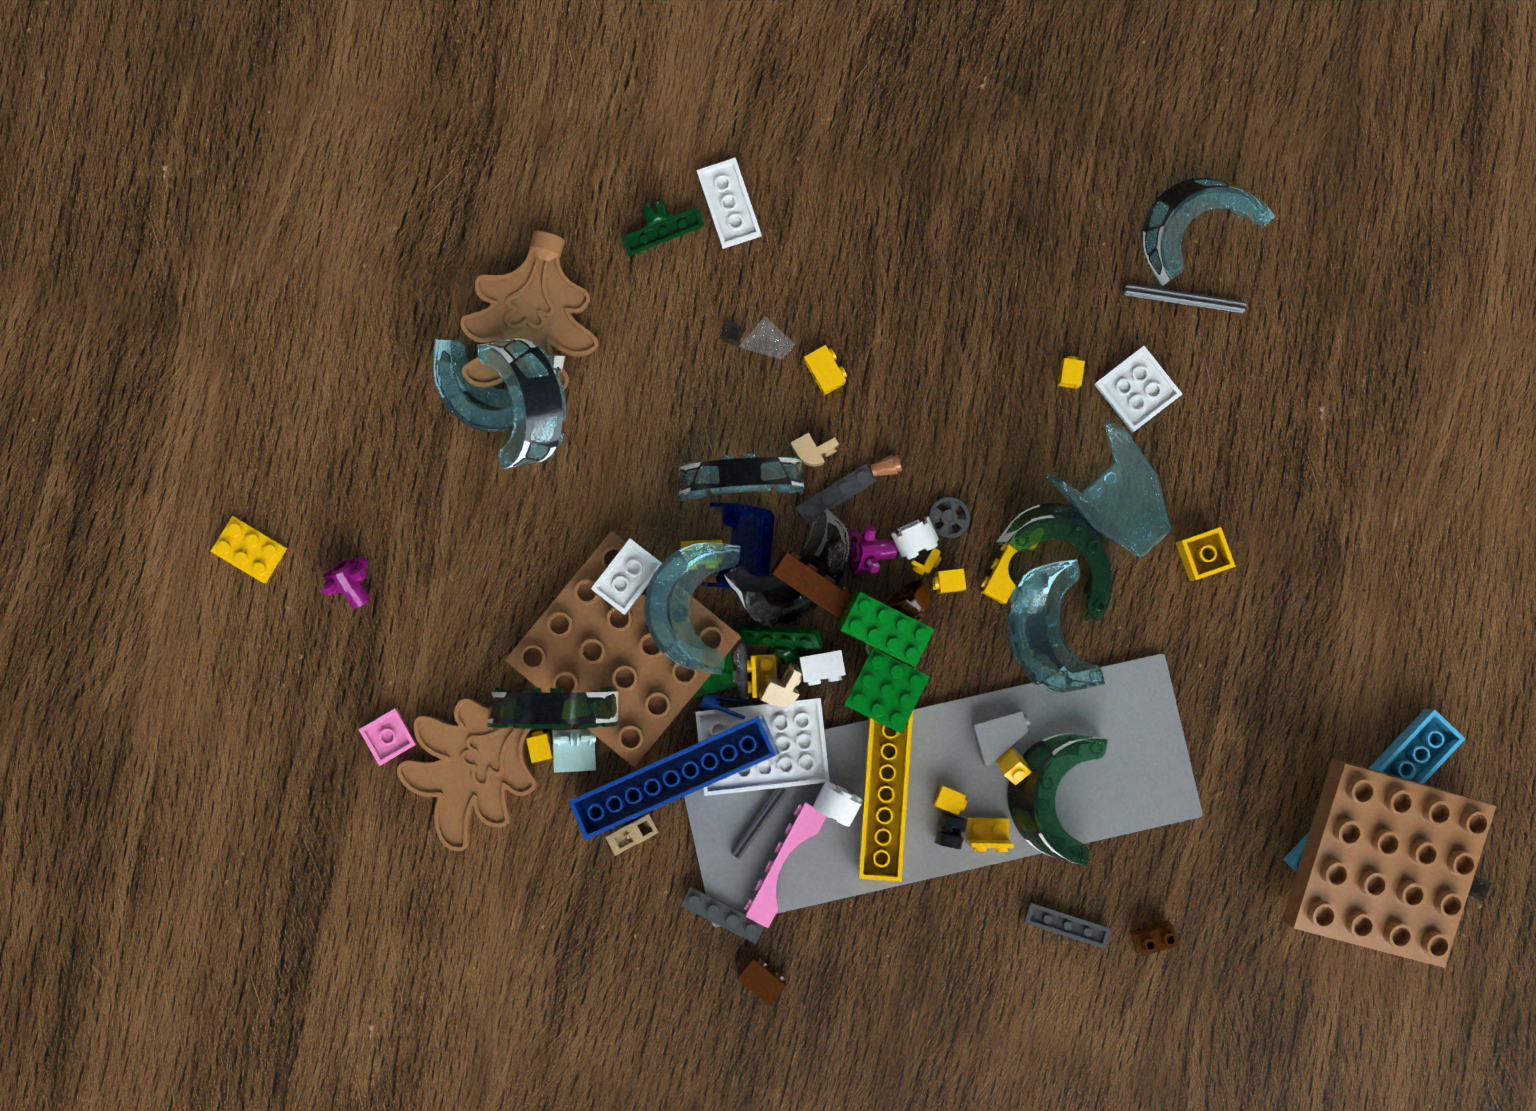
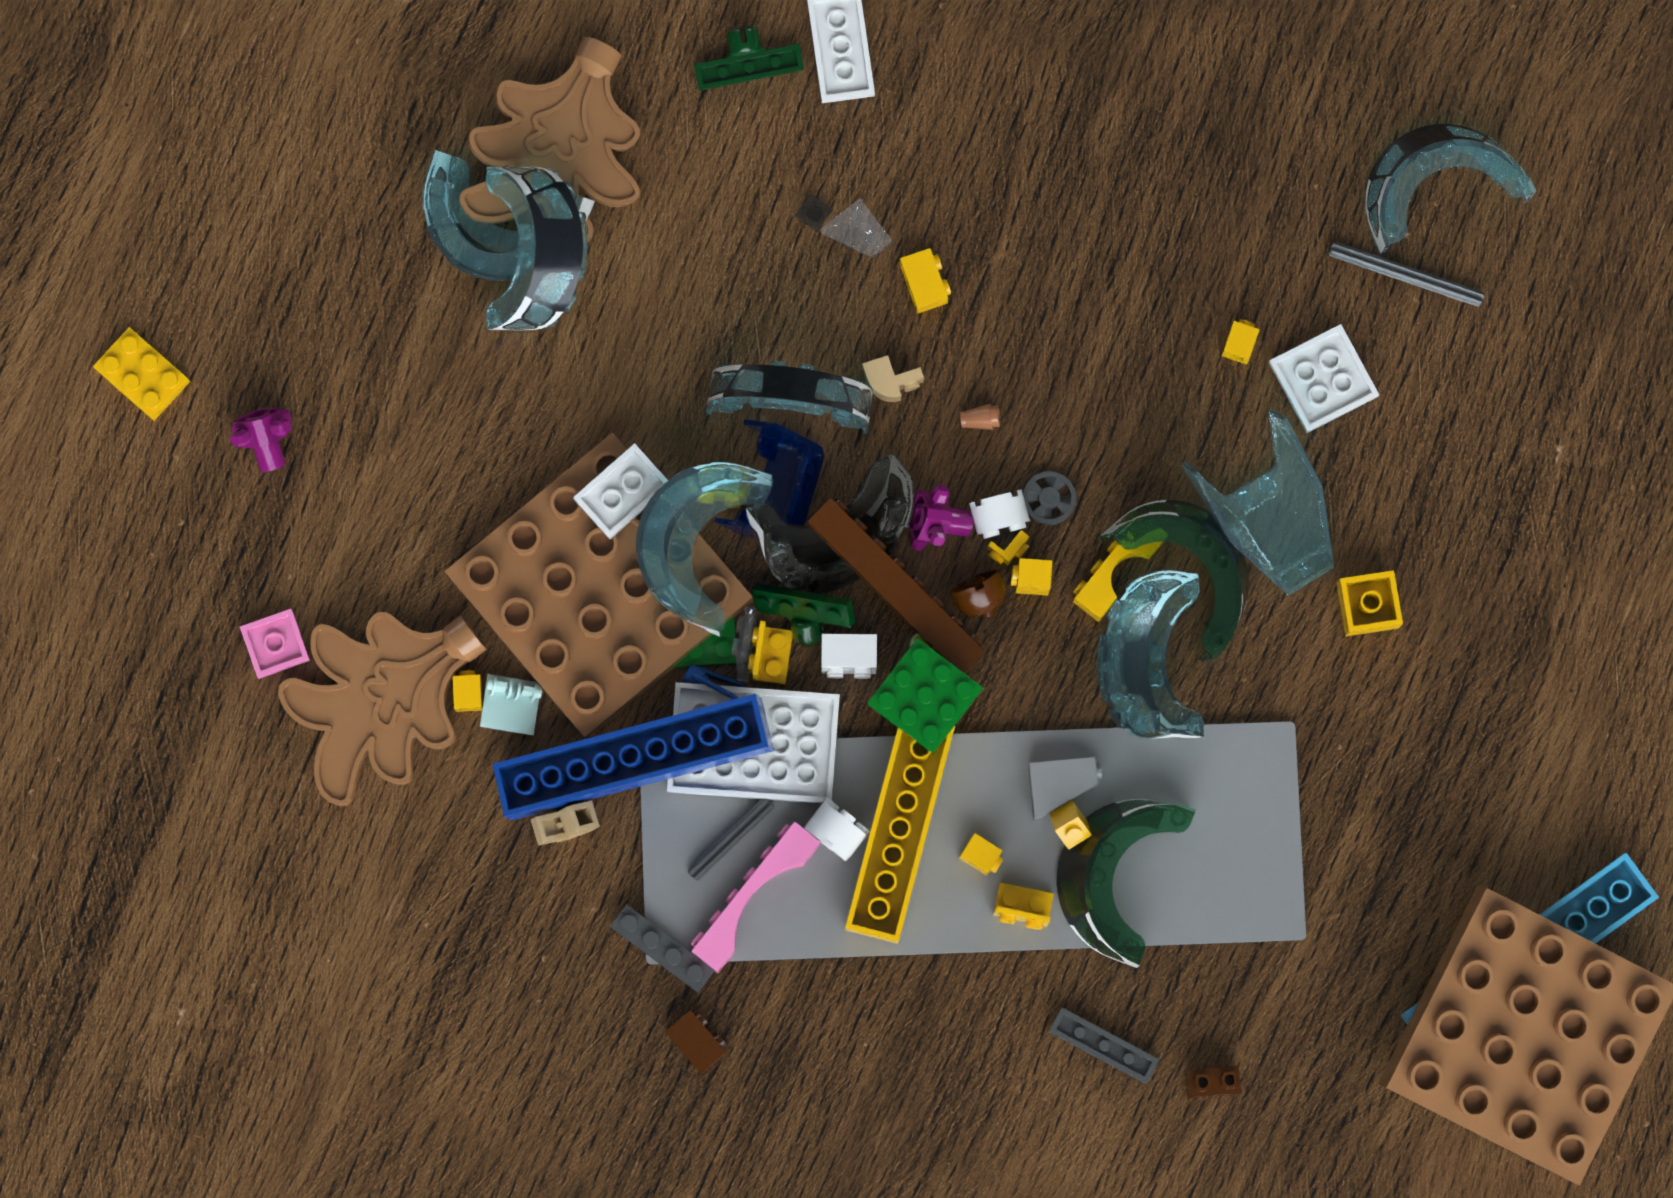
camera: 10 degrees right, 5 degrees down
(552, 709) = (498, 634): windscreen -> none
(781, 691) = (791, 677): tan brick -> none
(836, 493) = (911, 440): dark grey plate -> none
(885, 628) = (937, 617): green brick -> none
(945, 836) = (972, 903): black wheel -> none
(1479, 888) = (1643, 1095): clear smoke plate -> none

